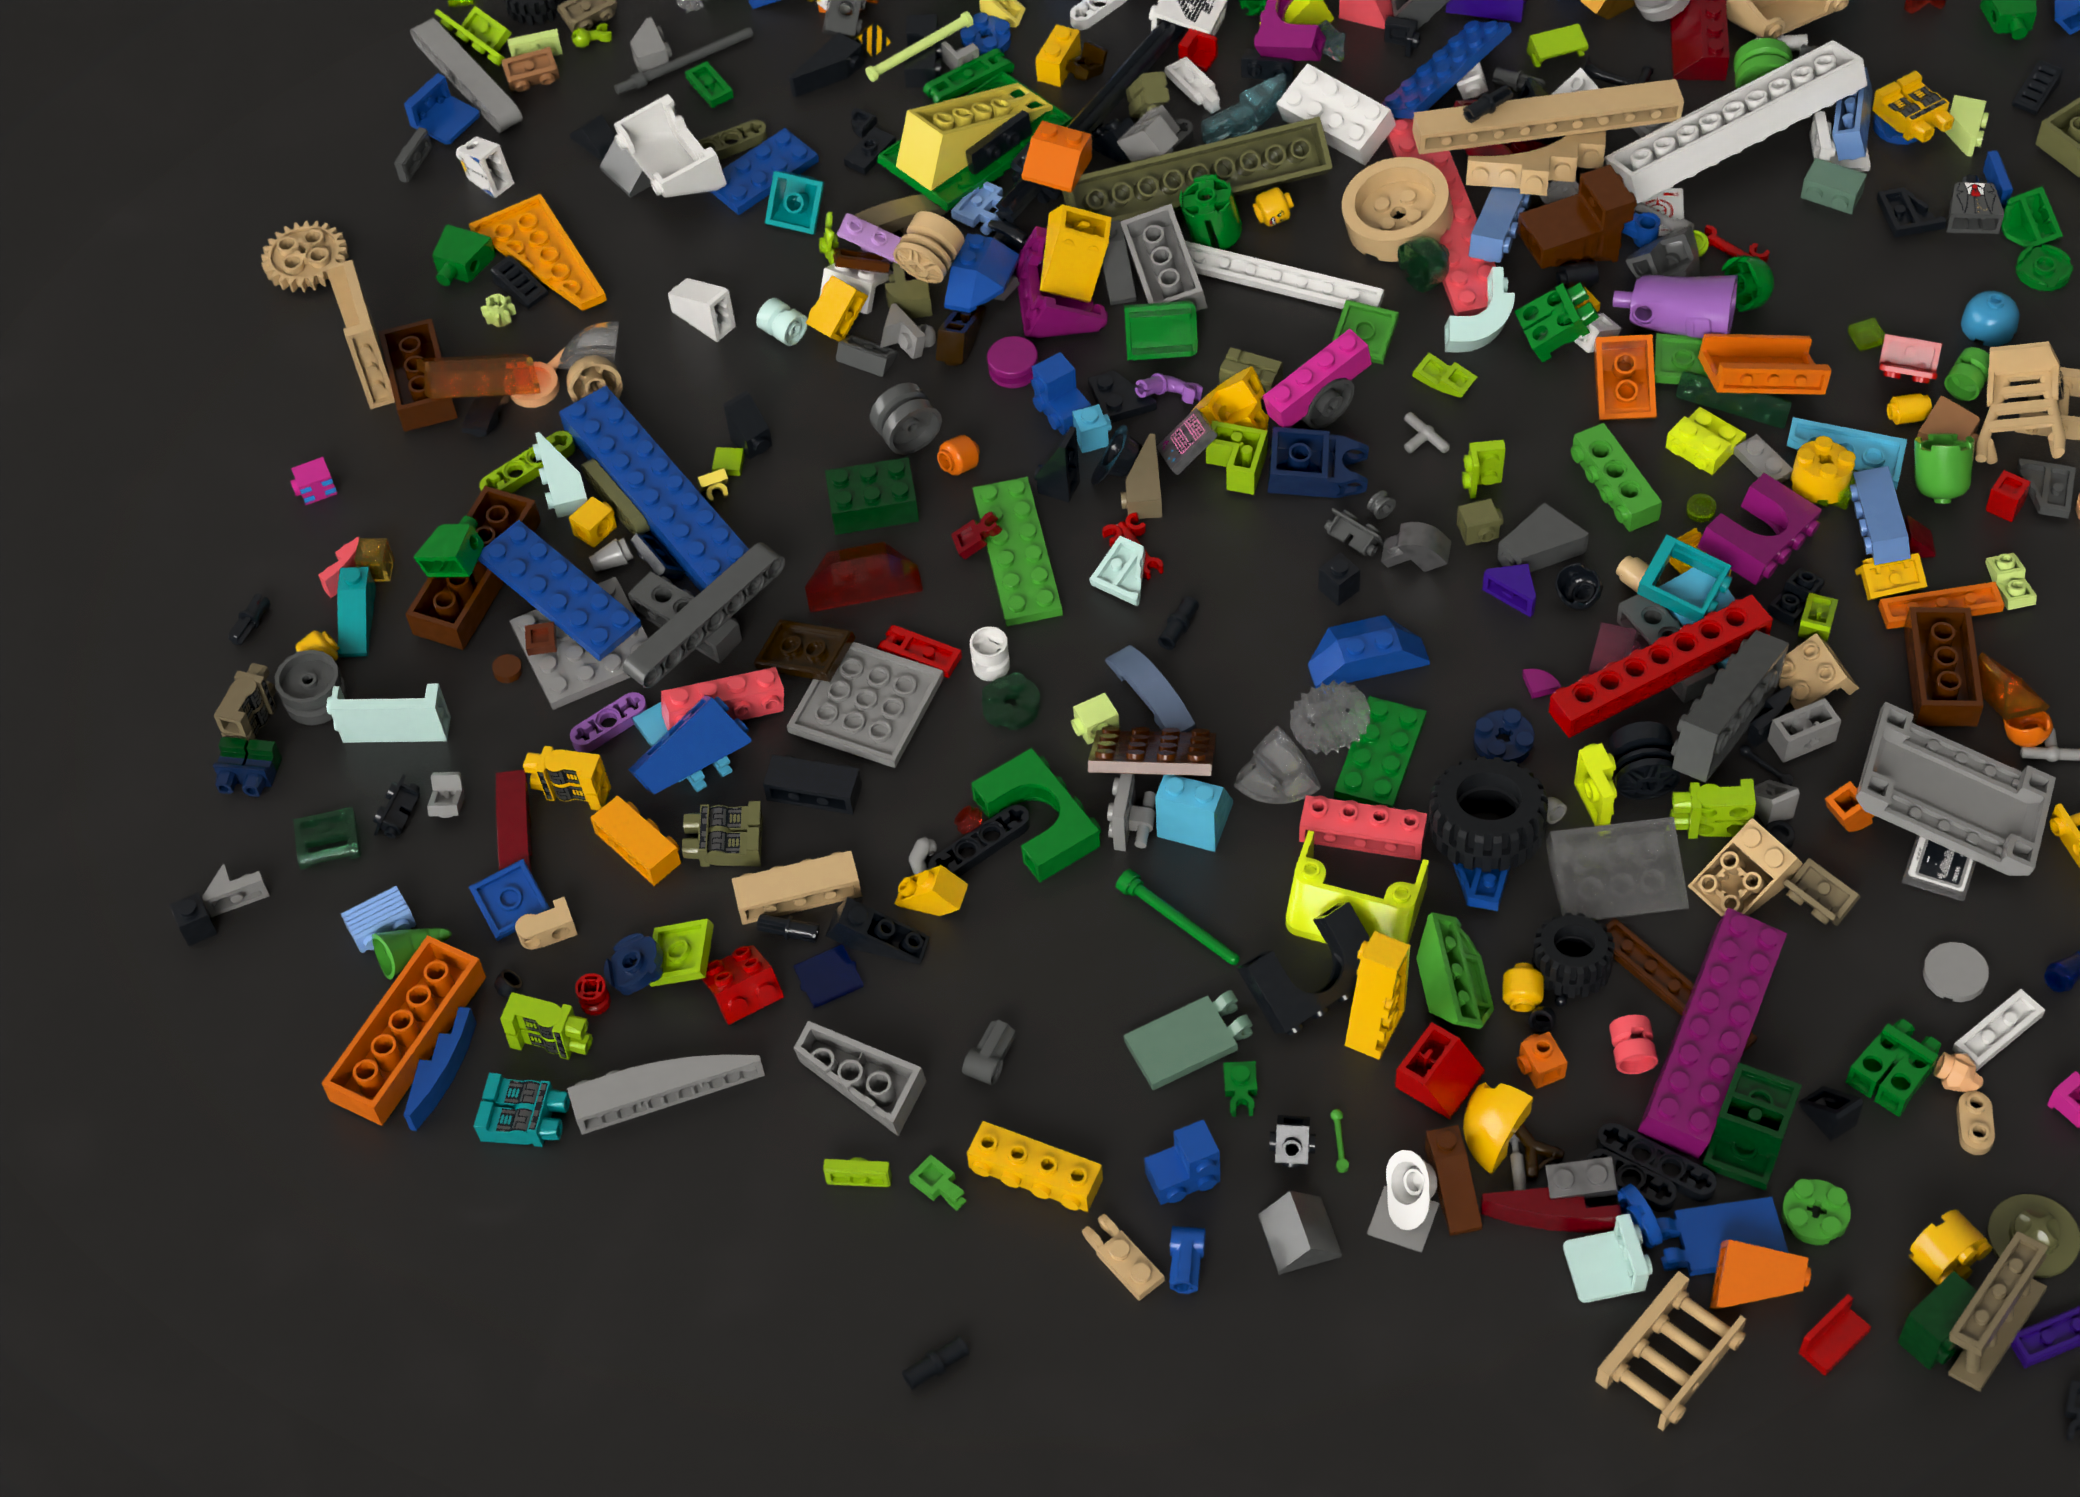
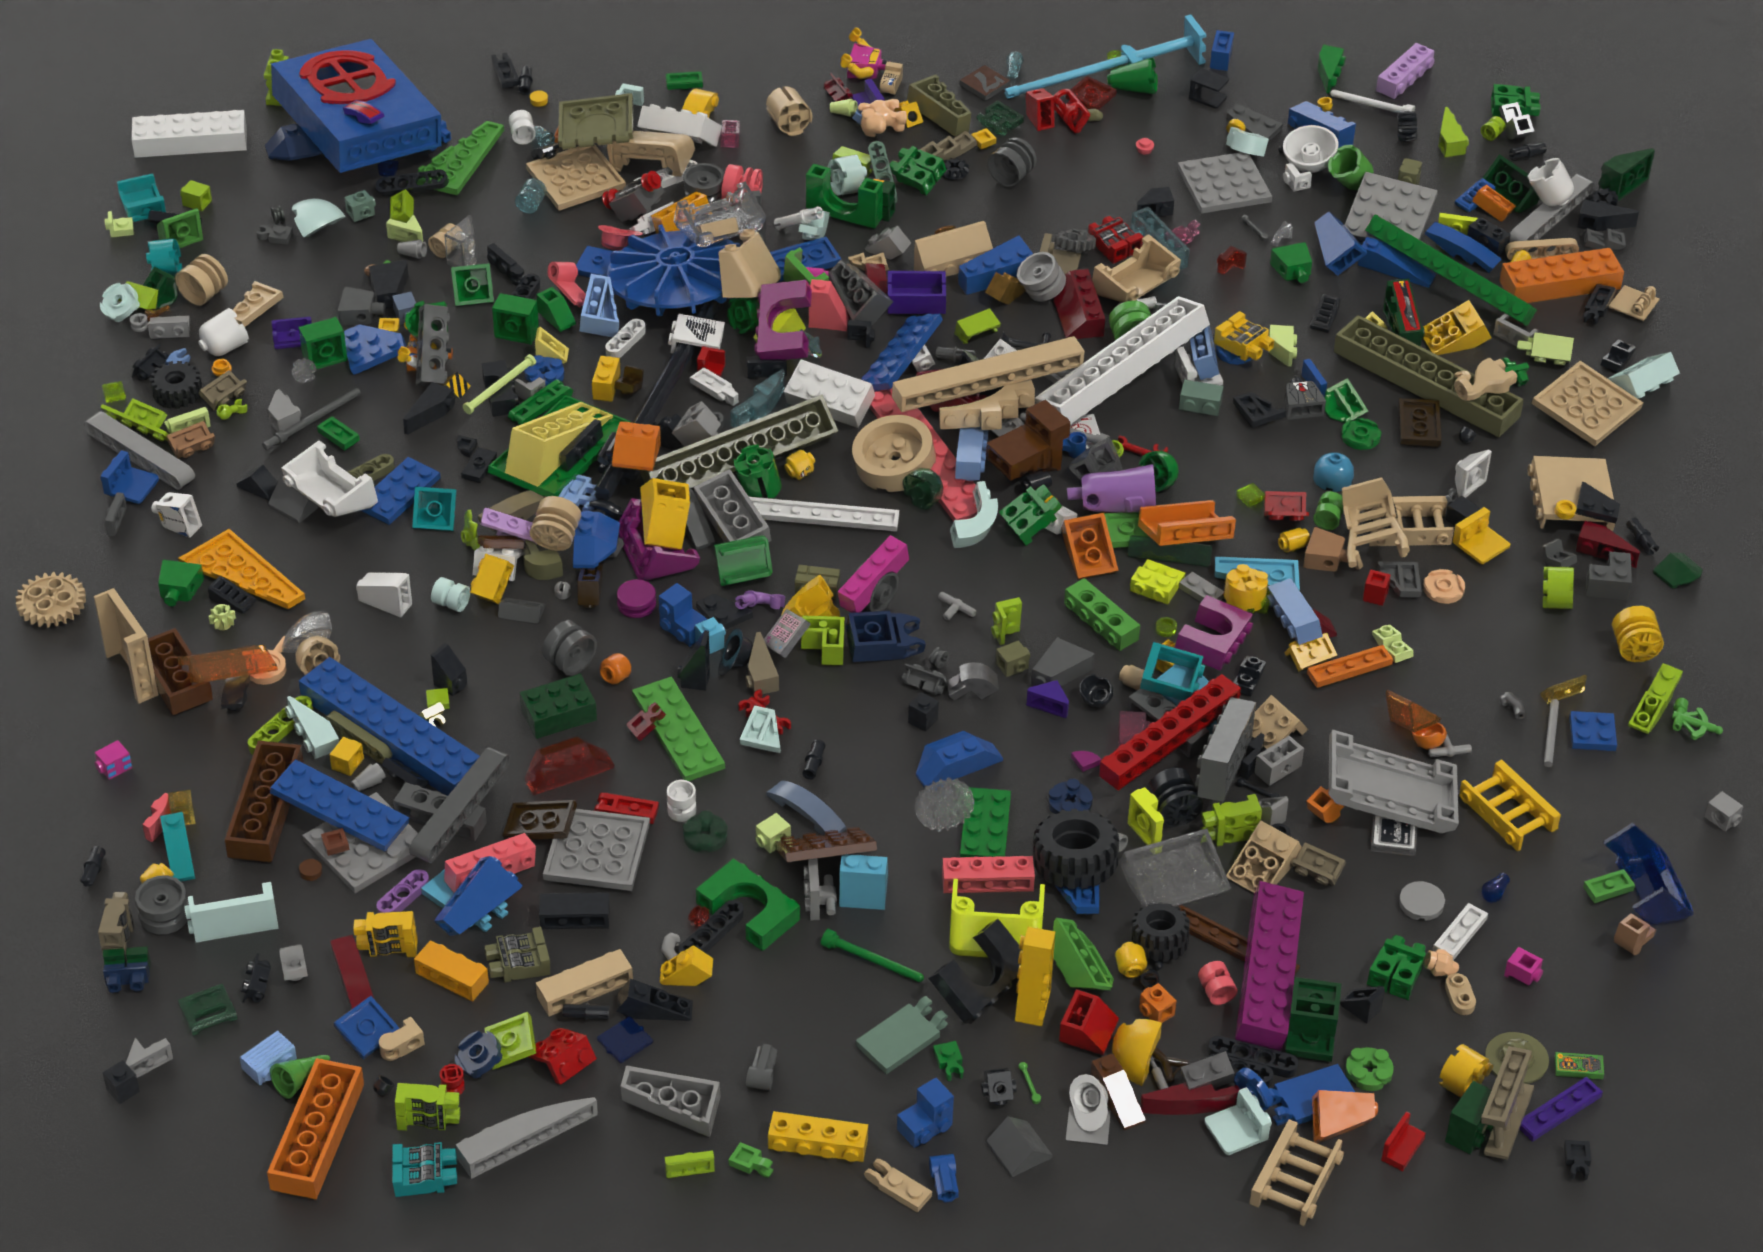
camera: 20 degrees left, 10 degrees down
(436, 1075) = (350, 1153): blue slope -> none
(451, 550) = (250, 787): green torso -> none
(904, 331) = (546, 588): light grey slope -> none
(1147, 93) = (684, 396): olive brick -> none
(1277, 772) = (916, 847): clear brick -> none
(1371, 324) = (901, 531): bright green tile -> none
(1442, 377) = (961, 566): lime slope -> none
(1487, 104) = (945, 369): black axle -> none
(1817, 616) = (1268, 684): lime slope -> none
(1943, 466) = (1328, 573): bright green cylinder -> none
(1943, 666) = (1362, 704): reddish brown brick -> none

